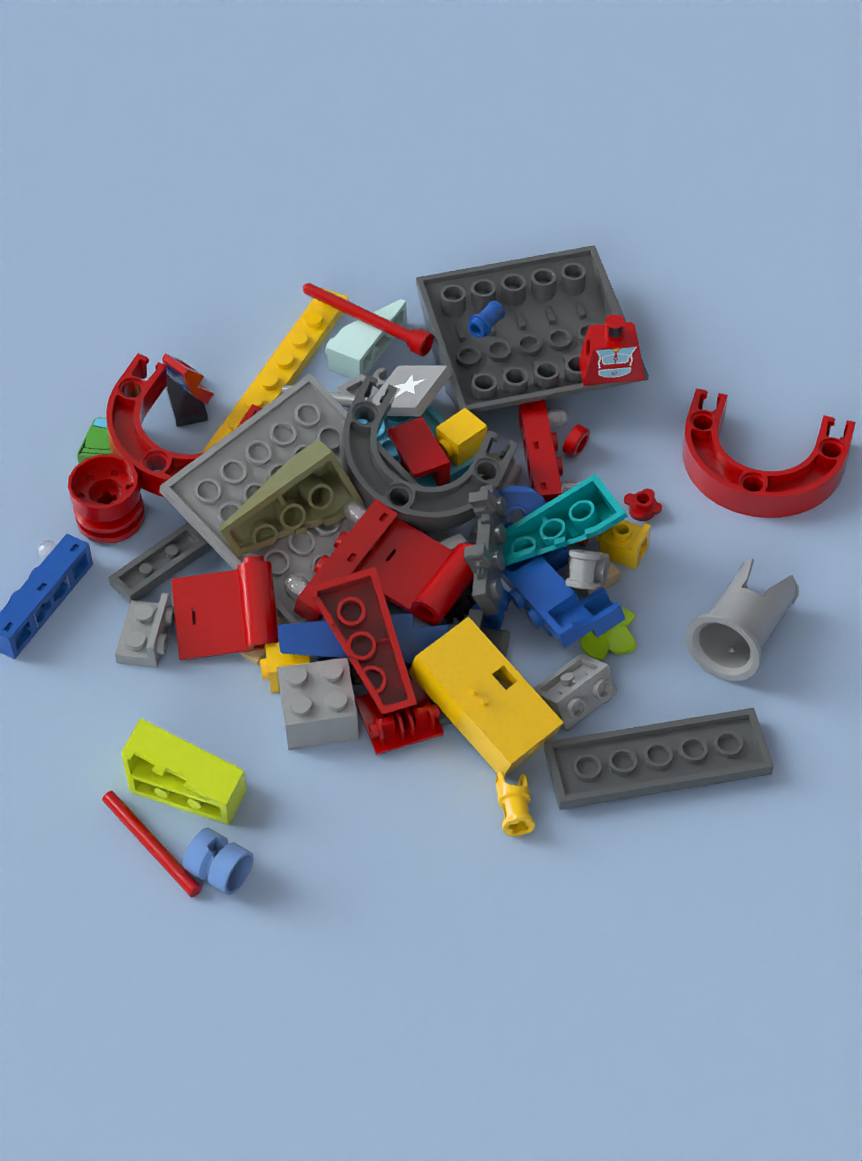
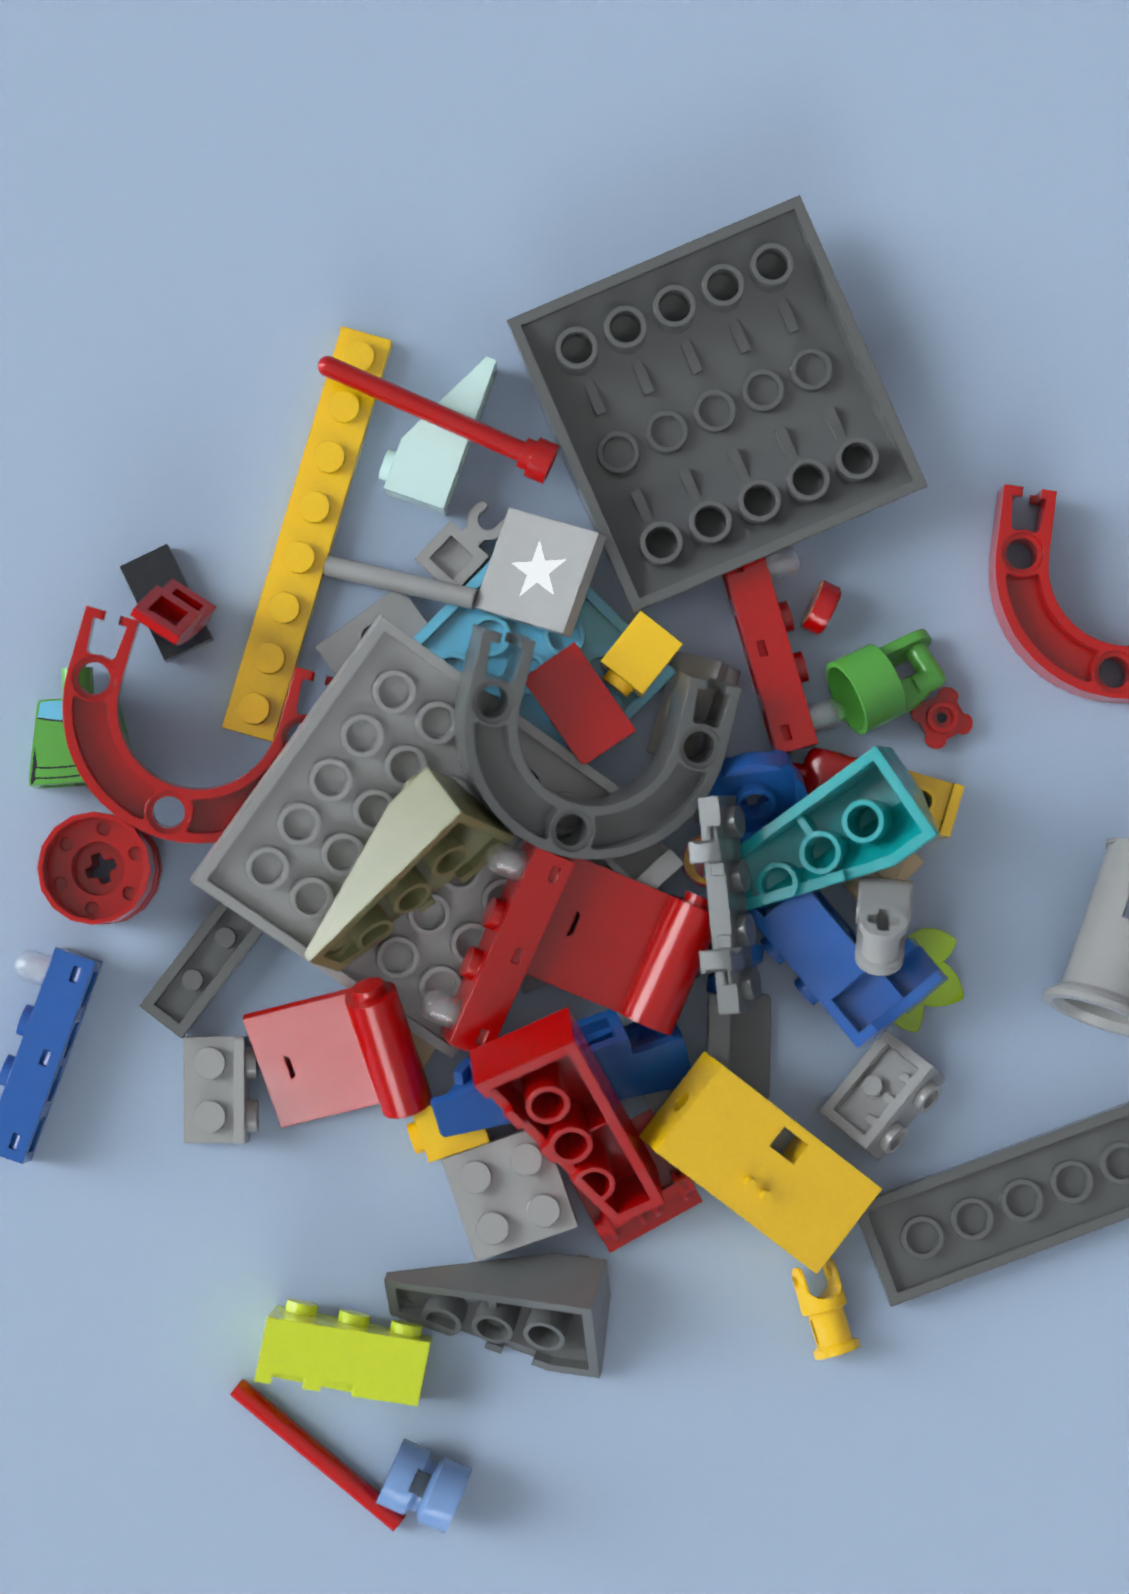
camera: 10 degrees left, 35 degrees up
(311, 772) = (533, 1304): none -> dark grey wedge
(481, 323) = (645, 416): blue pin -> none
(611, 353) = (865, 481): red torso -> none
(613, 470) = (871, 687): none -> bright green piece

